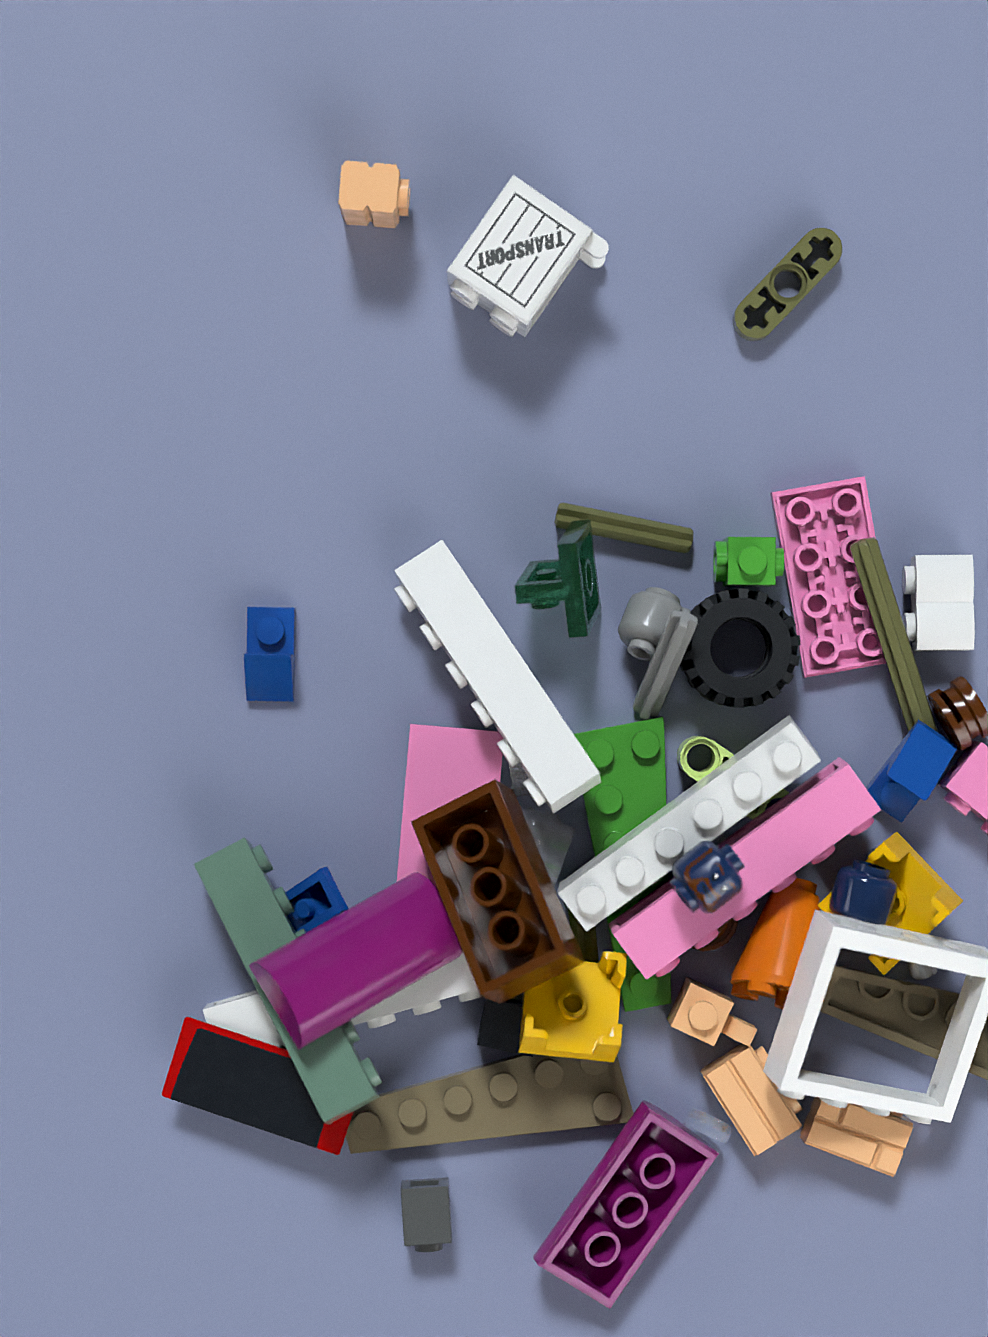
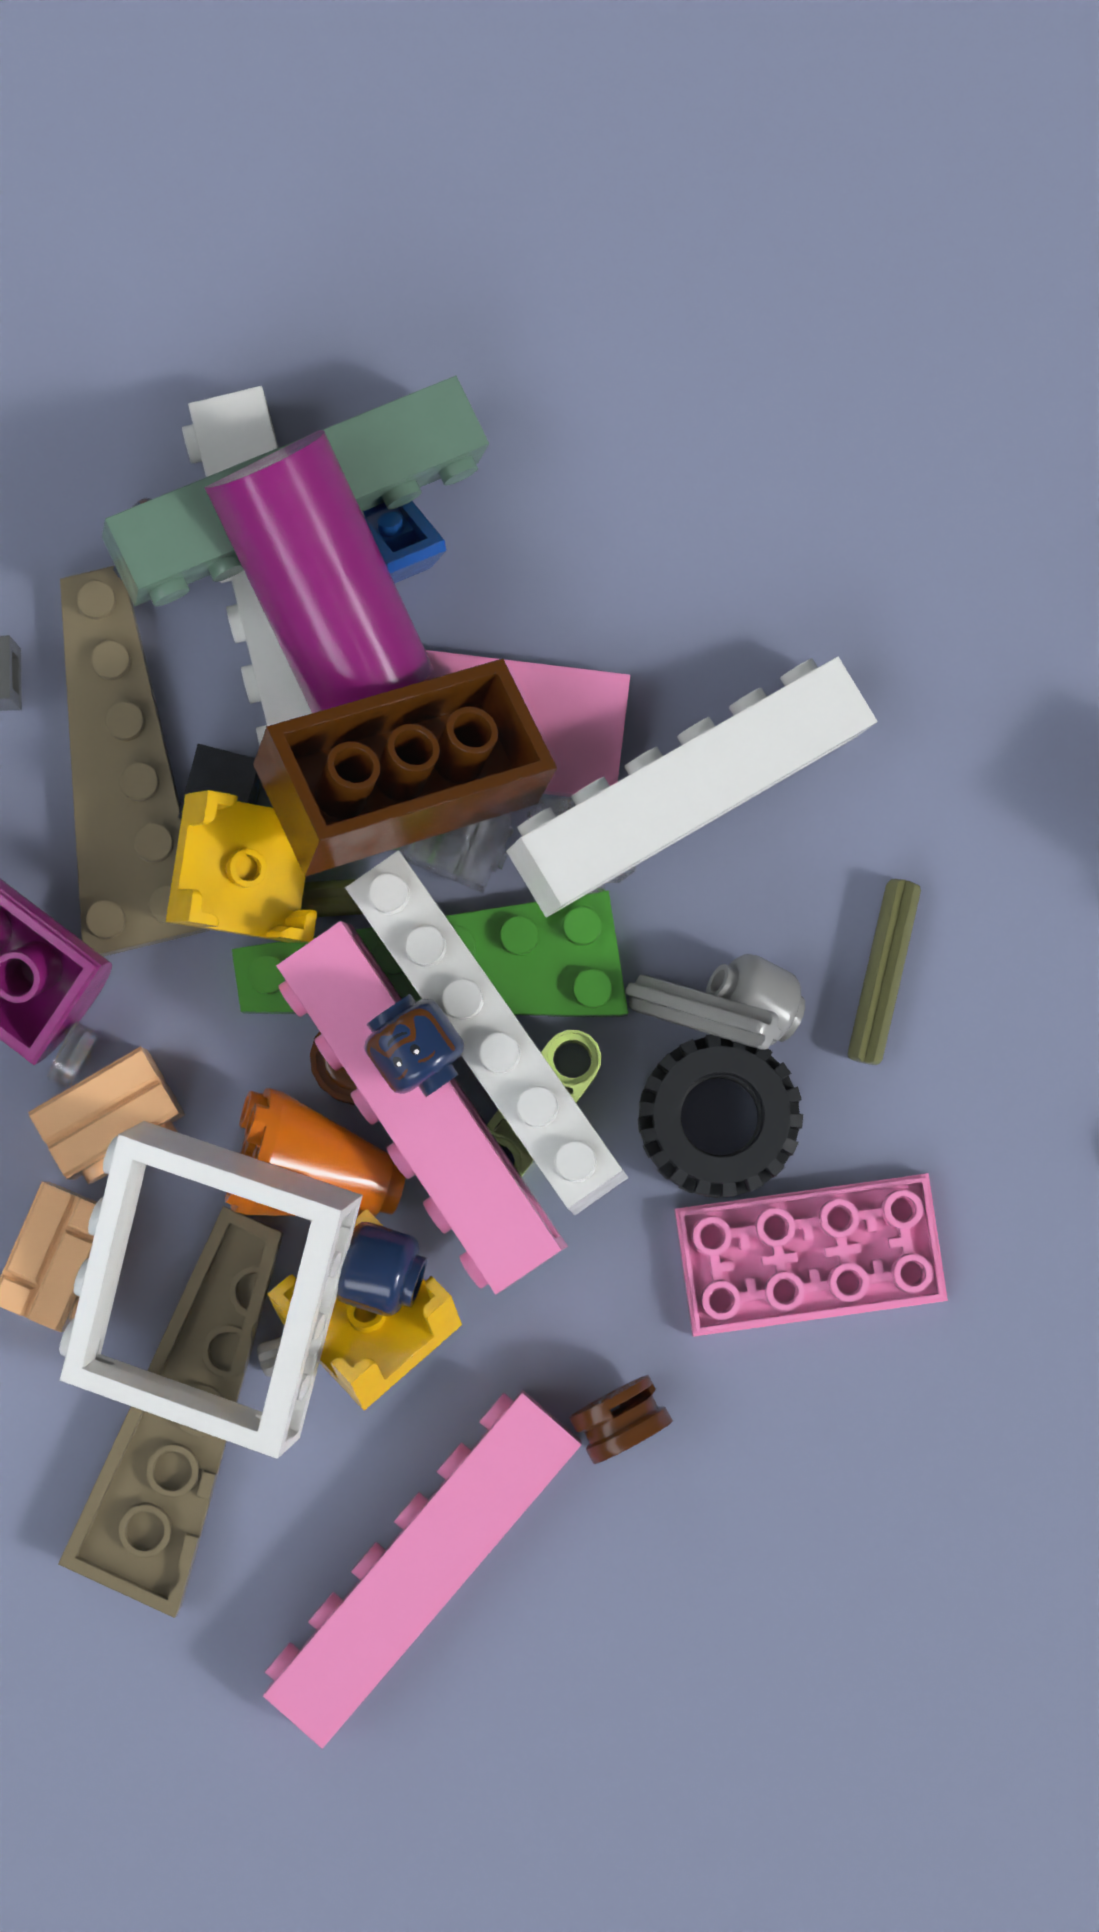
camera: 90 degrees right, 5 degrees down
(248, 1085) = (160, 436): black sticker -> none
(270, 654) = (727, 499): blue slope -> none
(566, 579) = (822, 890): clear green bracket -> none
(706, 1014) = (226, 1053): light nougat brick -> none
(747, 561) = (836, 1133): bright green brick -> none
(891, 632) = (712, 1333): olive axle -> none
(911, 771) = (543, 1347): blue slope -> none
(940, 602) = (772, 1398): white brick -> none

